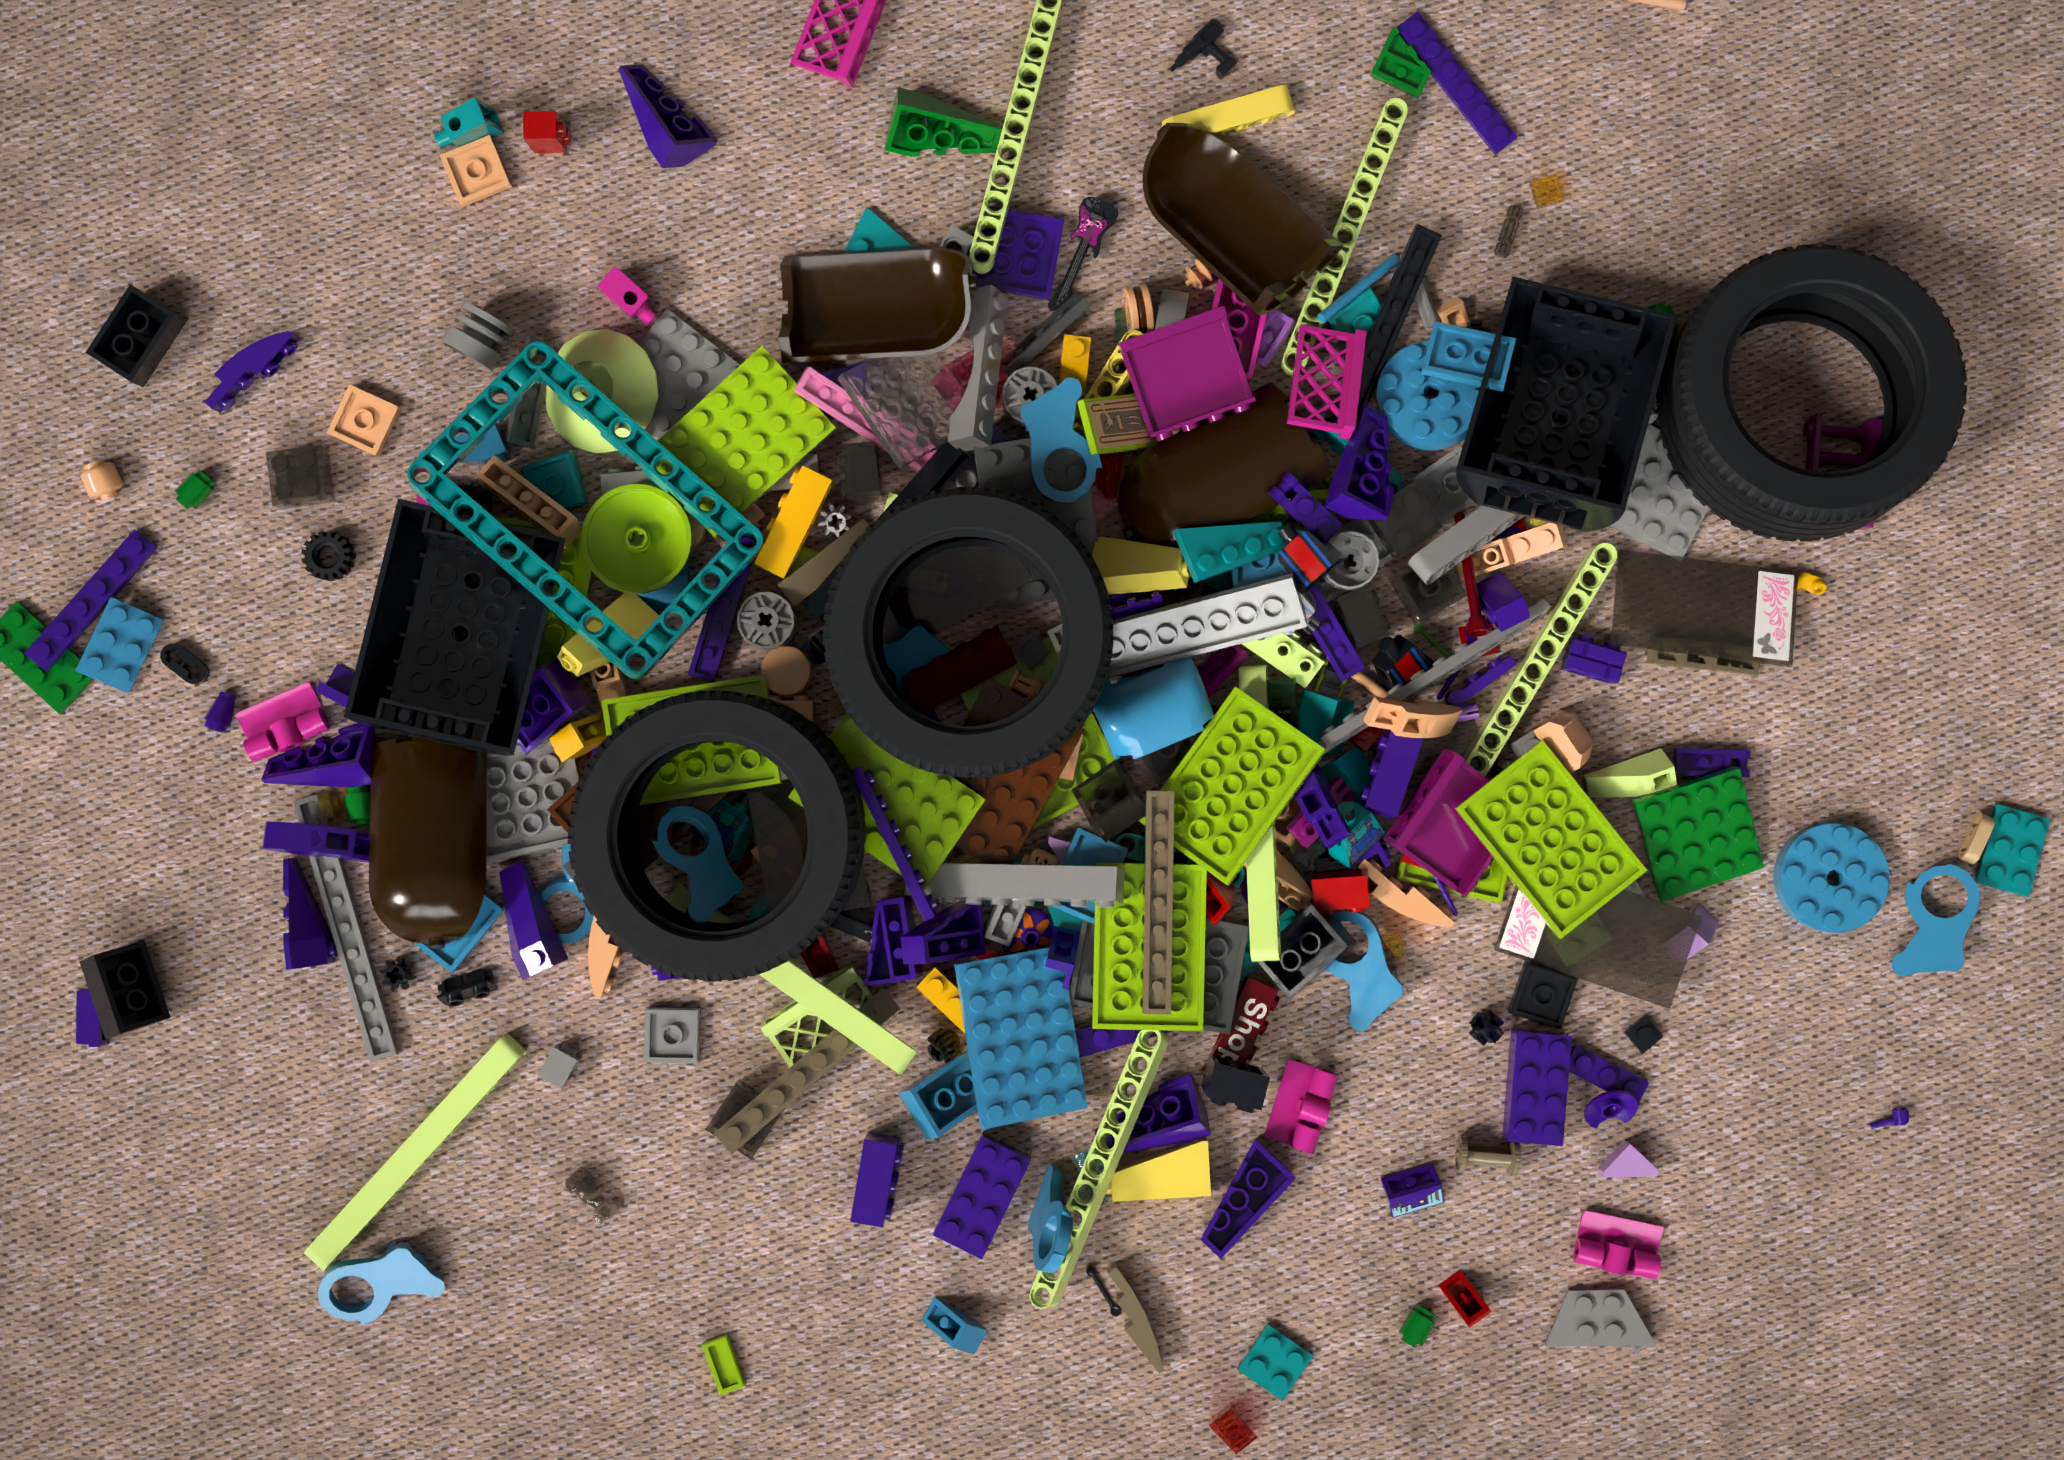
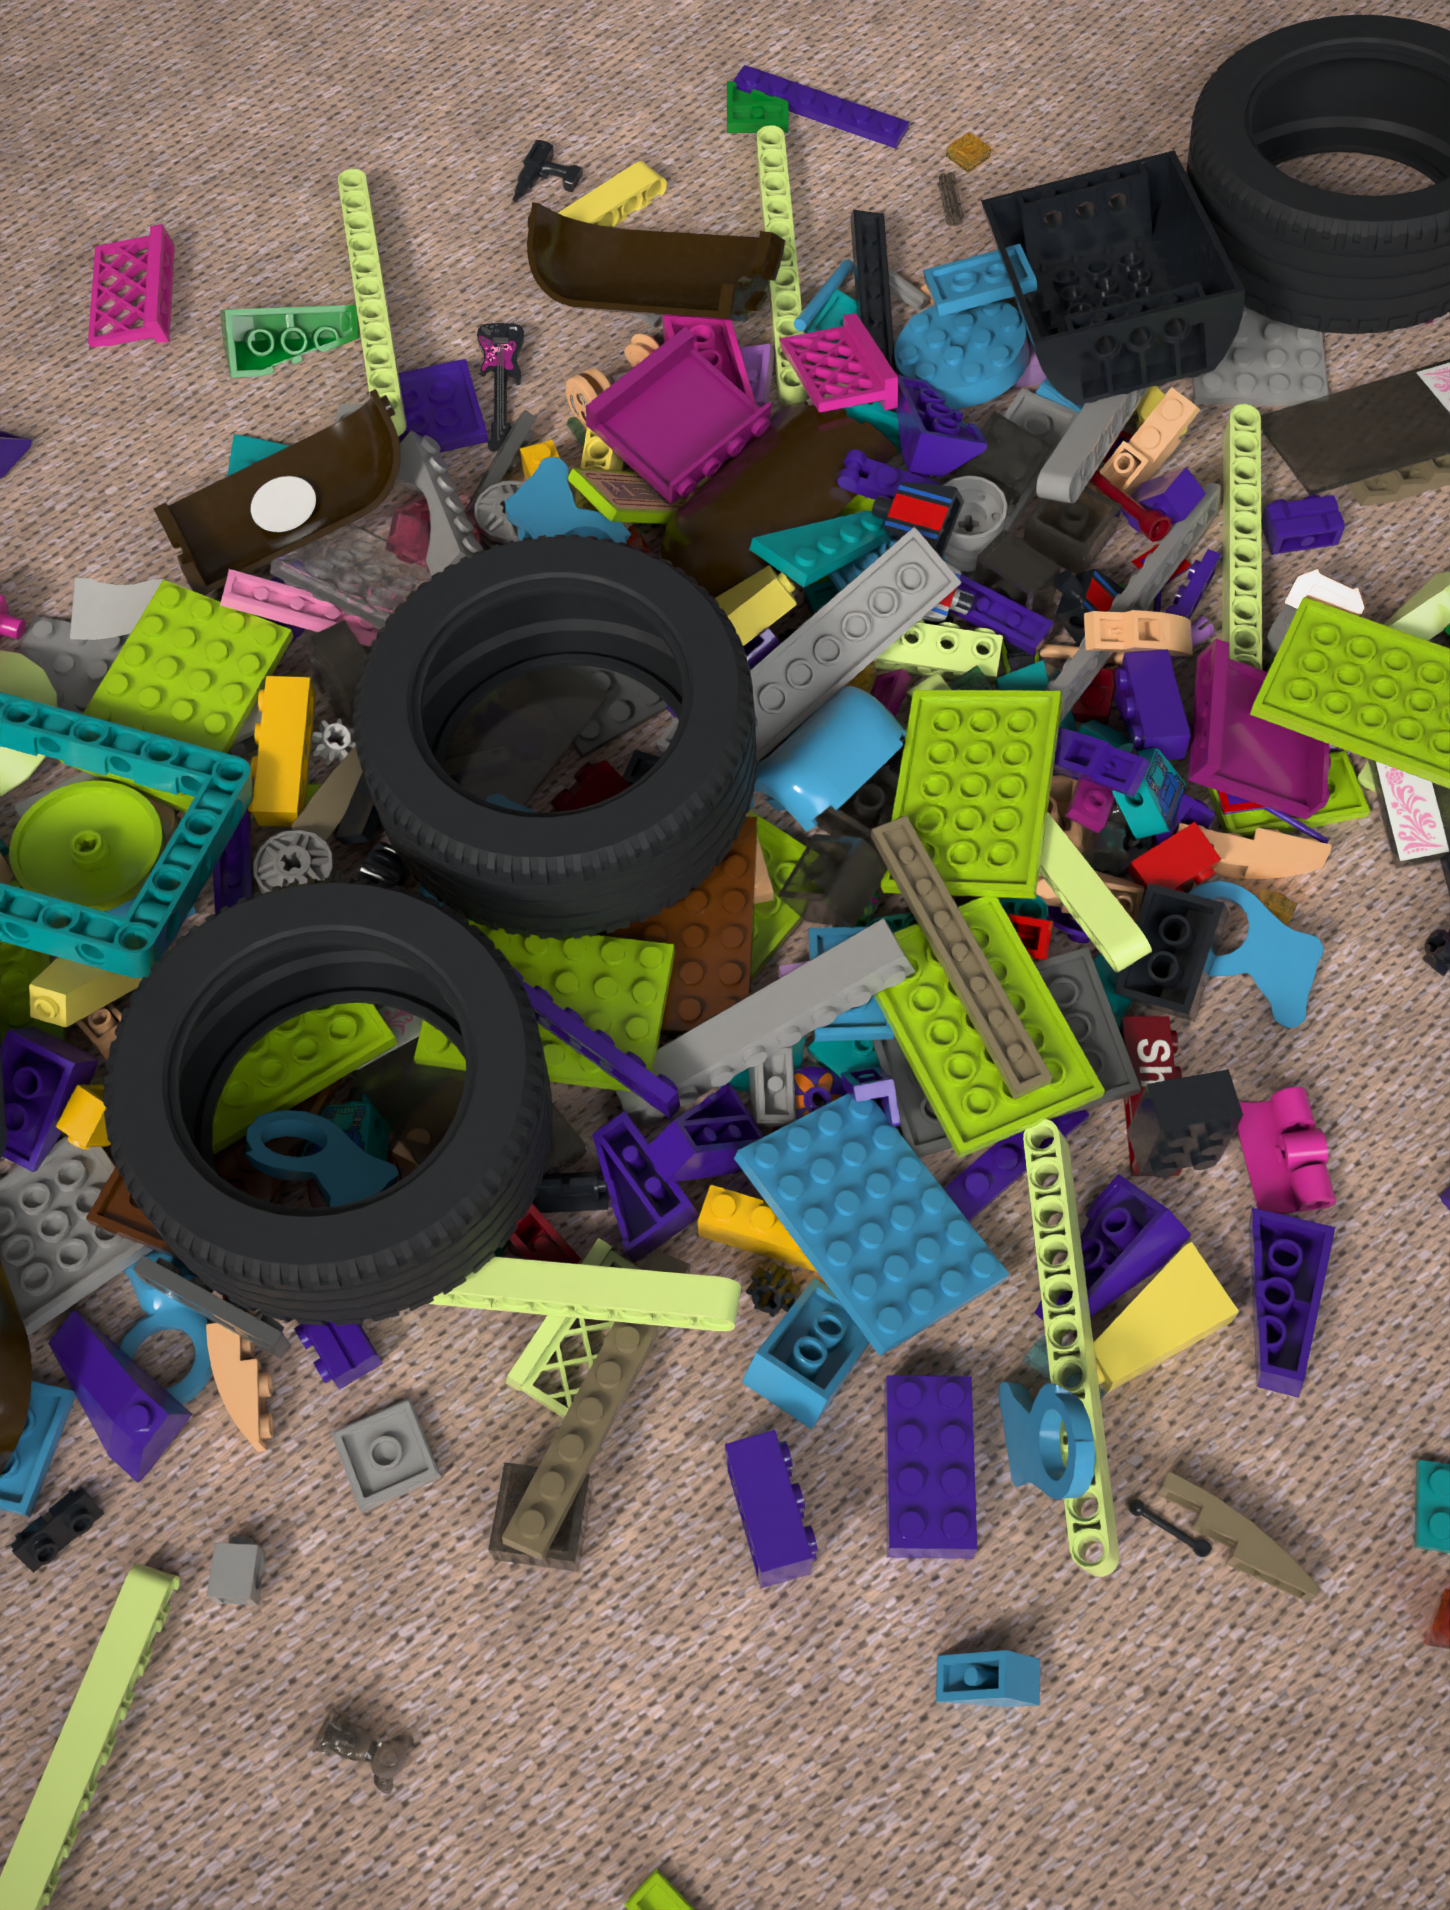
camera: 25 degrees left, 25 degrees down
(725, 329) = (108, 609): none -> white sticker
(875, 298) = (283, 504): none -> white sticker

